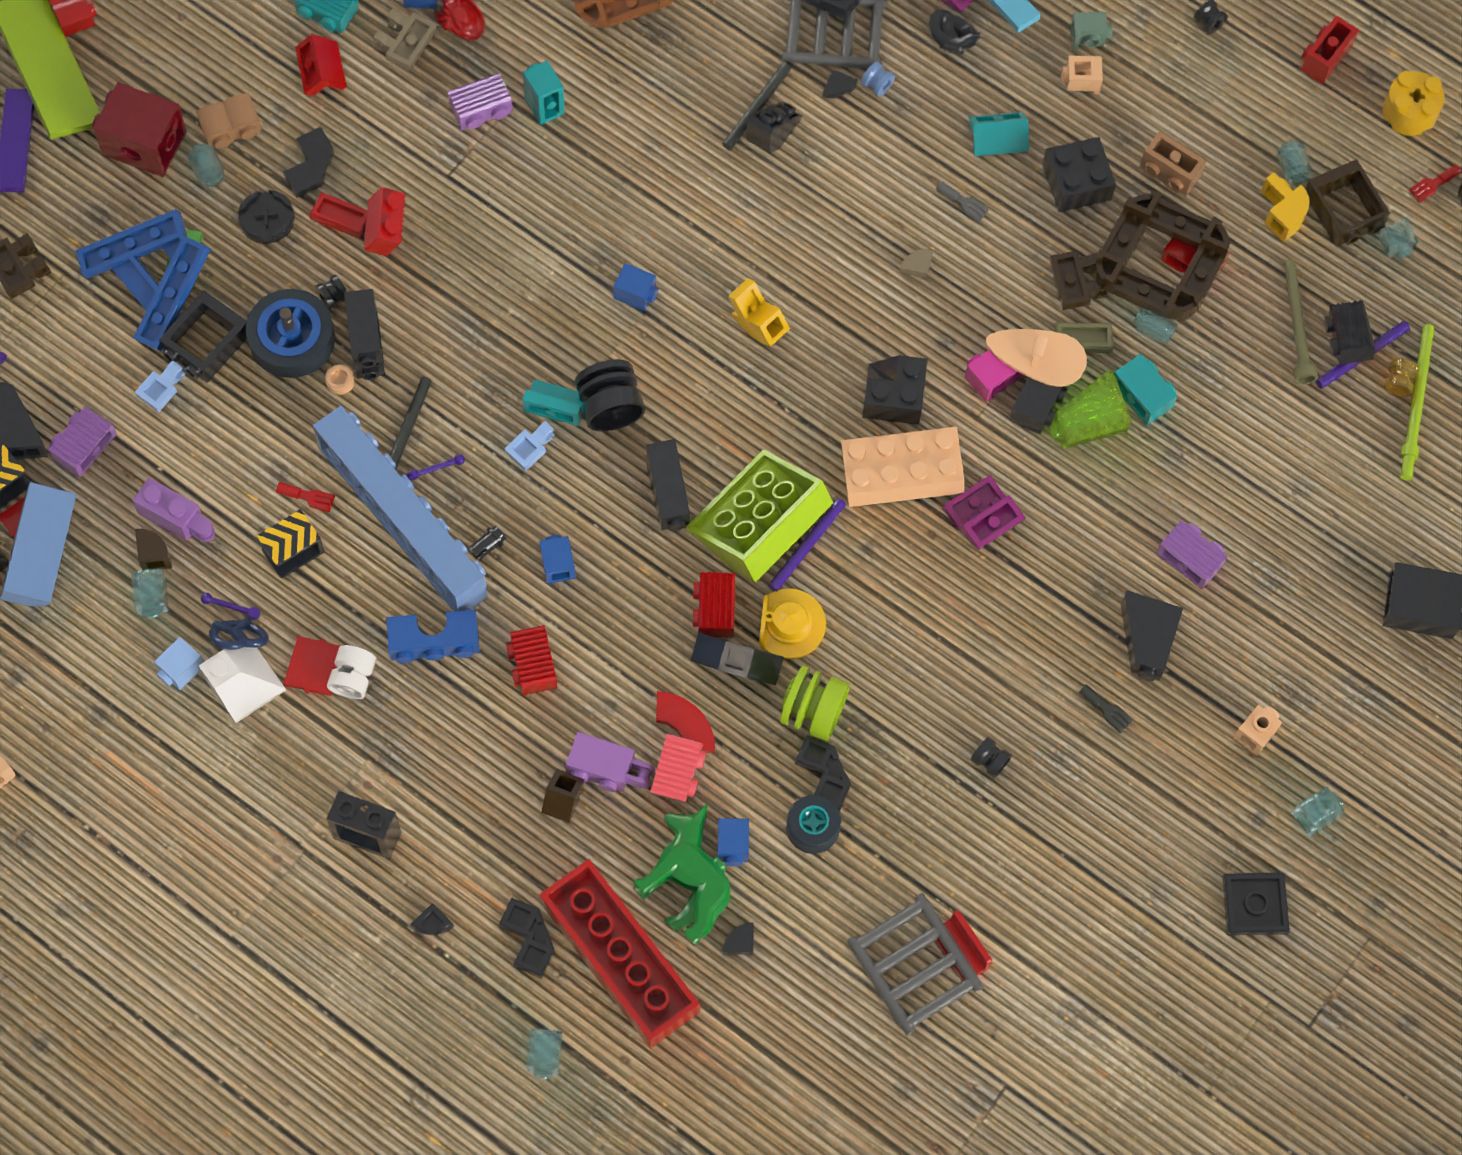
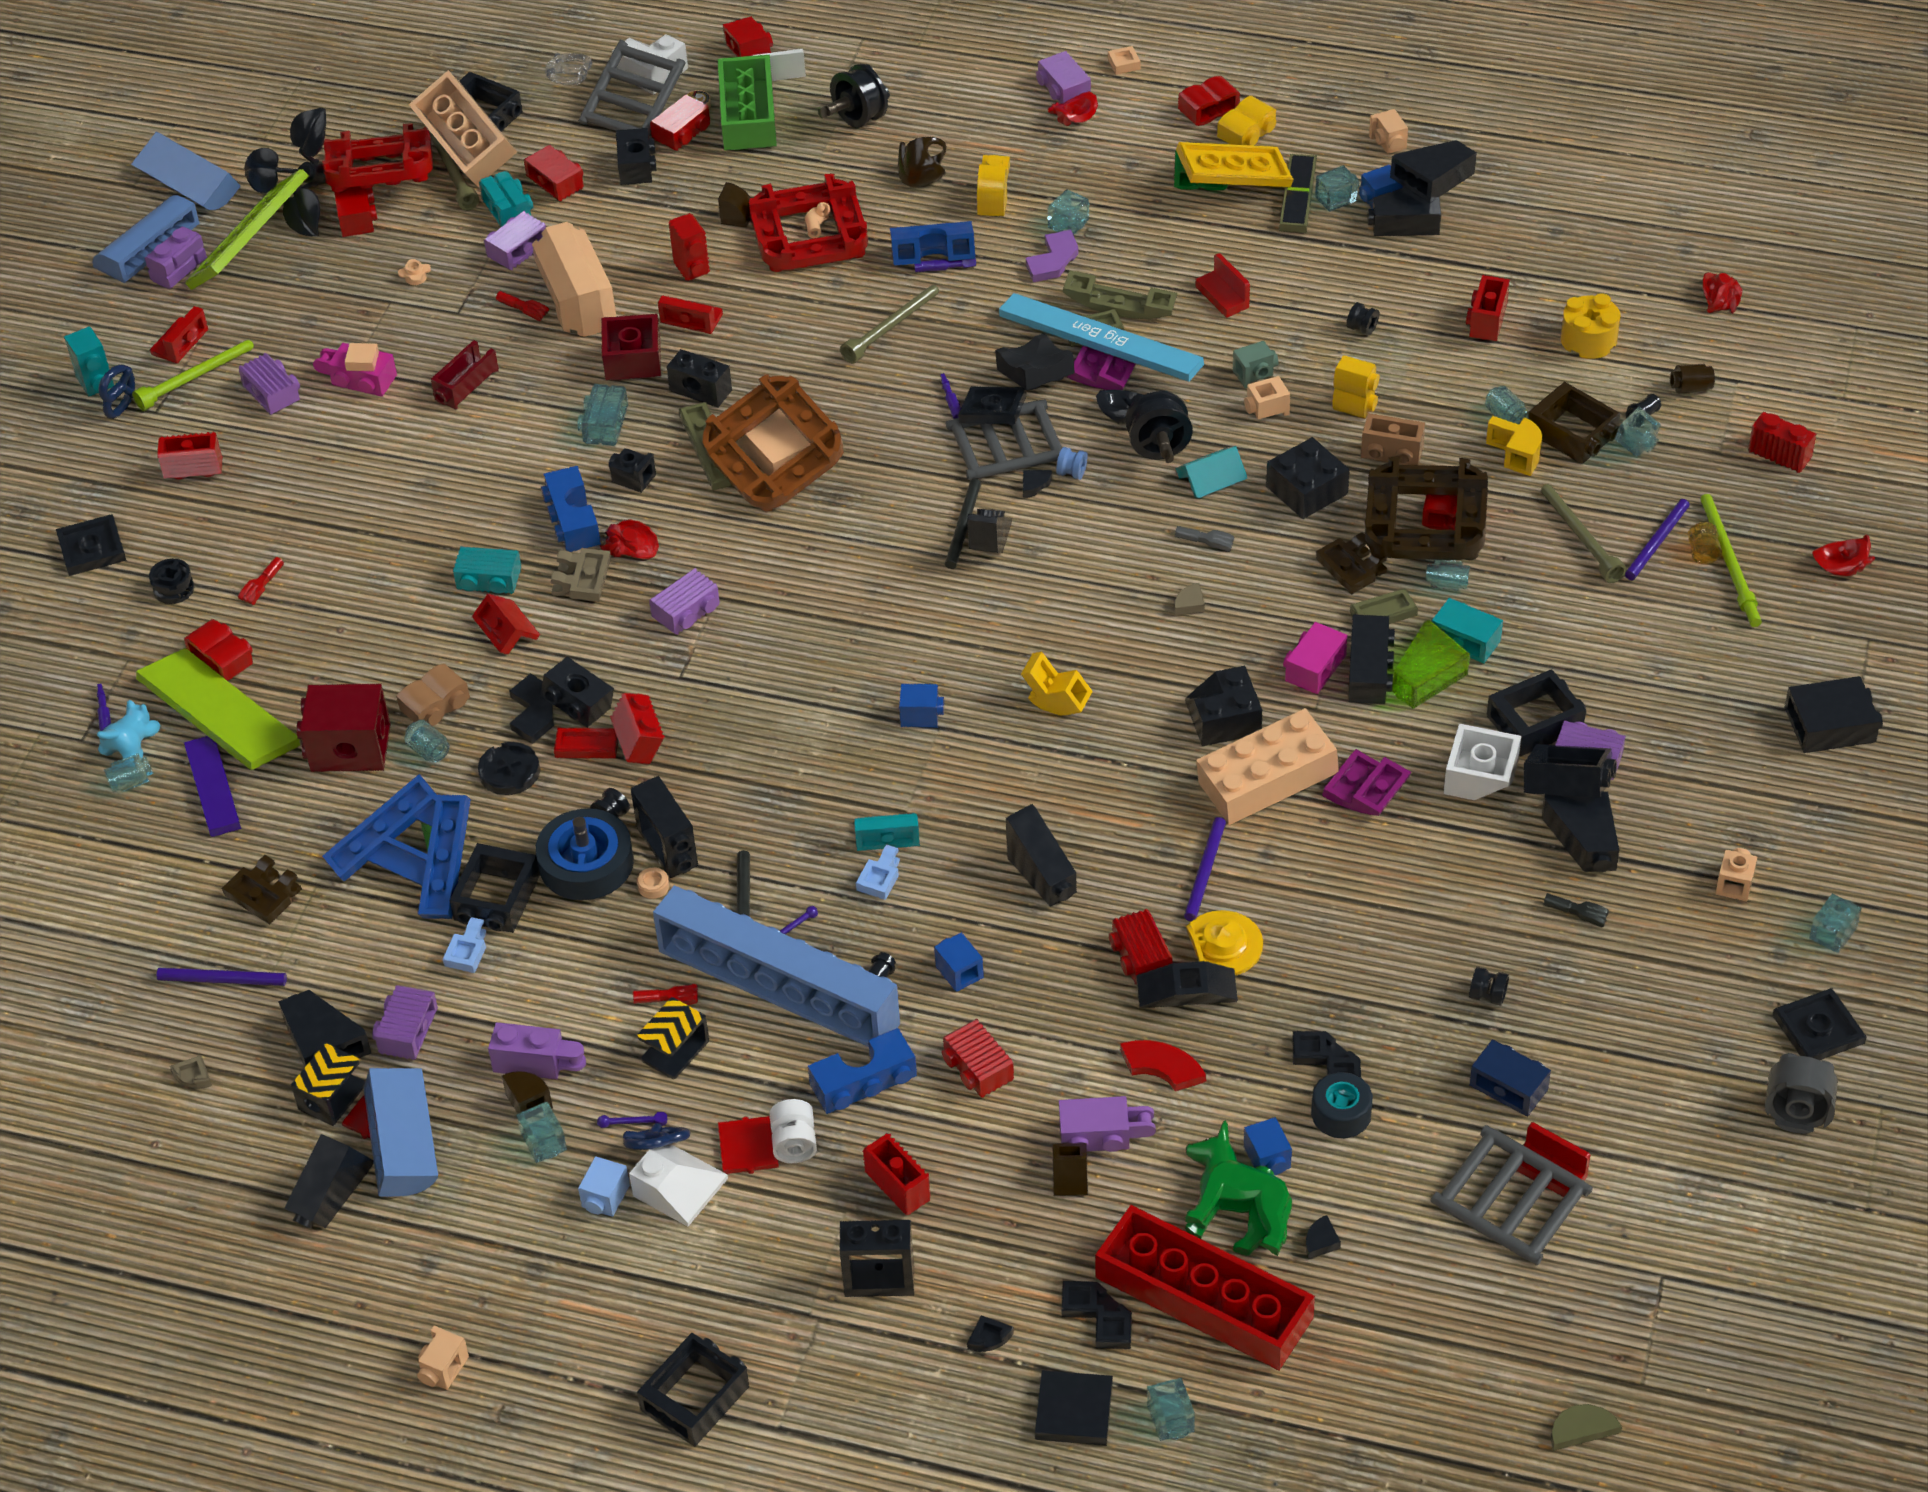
camera: 15 degrees left, 20 degrees down
(162, 859) = (675, 1417): none -> black window
(348, 149) = (577, 692): none -> black brick
(417, 748) = (897, 1174): none -> red brick
(471, 1016) = (1074, 1407): none -> black tile
(543, 92) = (748, 569): teal brick -> none
(609, 395) = (943, 798): black wheel -> none
(677, 768) = (1178, 1101): coral brick -> none
(760, 514) = (1146, 854): lime slope -> none
(814, 702) = (1289, 992): lime wheel -> none
(967, 853) = (1510, 1077): none -> dark blue brick
(968, 72) = (1158, 425): none -> black wheel
(1040, 354) = (1352, 628): light nougat shield -> none
(1088, 535) = (1481, 762): none -> white slope
(1163, 522) = (1507, 720): none -> black window
(1164, 94) = (1355, 387): none -> yellow brick
(1164, 561) = (1569, 770): none -> black window
(1201, 969) = (1801, 1093): none -> dark grey brick
(1350, 332) = (1637, 520): black brick -> none
(1418, 210) = (1649, 404): none -> black pin
(1428, 186) = (1641, 390): red piece -> none

